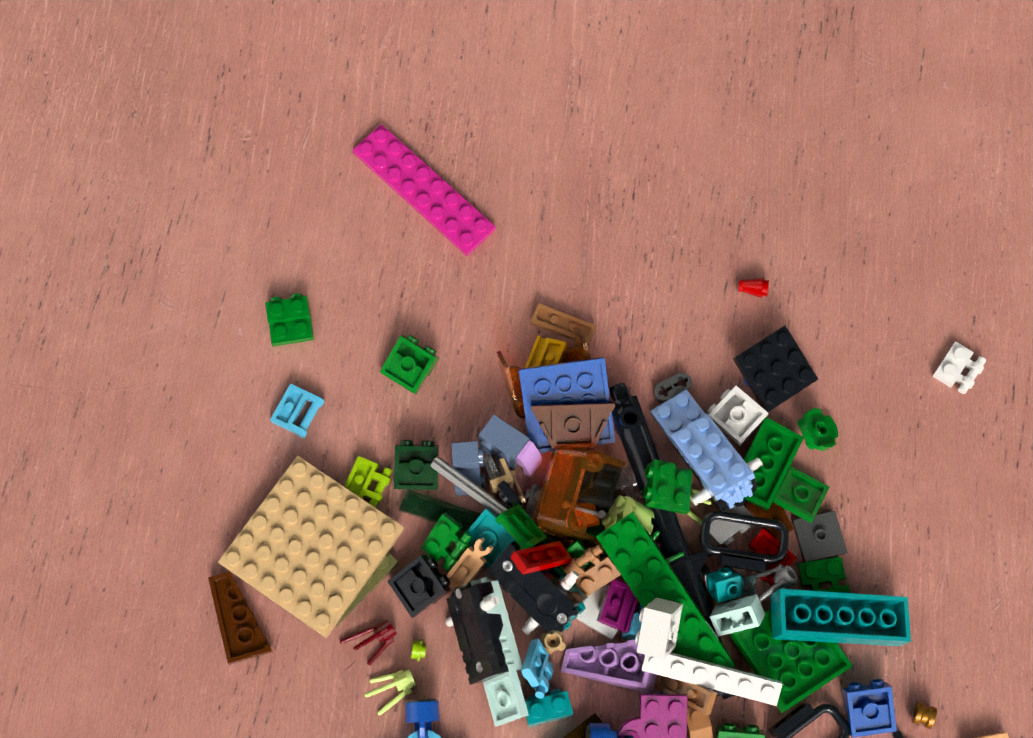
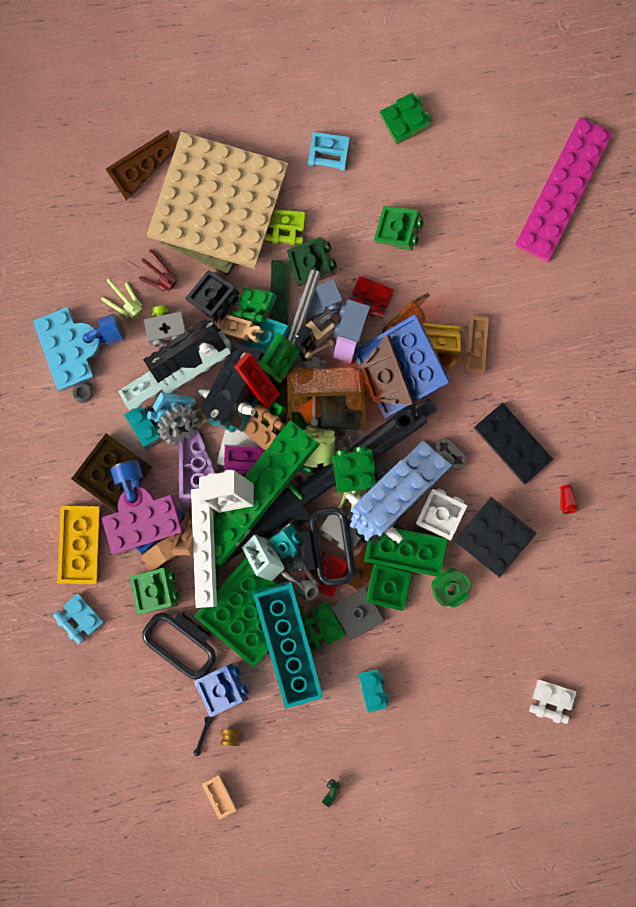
camera: 70 degrees right, 10 degrees up
(433, 661) = (156, 325): none -> light grey brick
(471, 412) = (372, 292): none -> red plate
(559, 666) = (177, 424): none -> light grey gear
(671, 455) = (383, 464): none -> flat silver plate
(679, 322) = (513, 443): none -> black plate
(908, 545) = (372, 690): none -> teal brick
(1004, 618) = (333, 792): none -> dark green arm

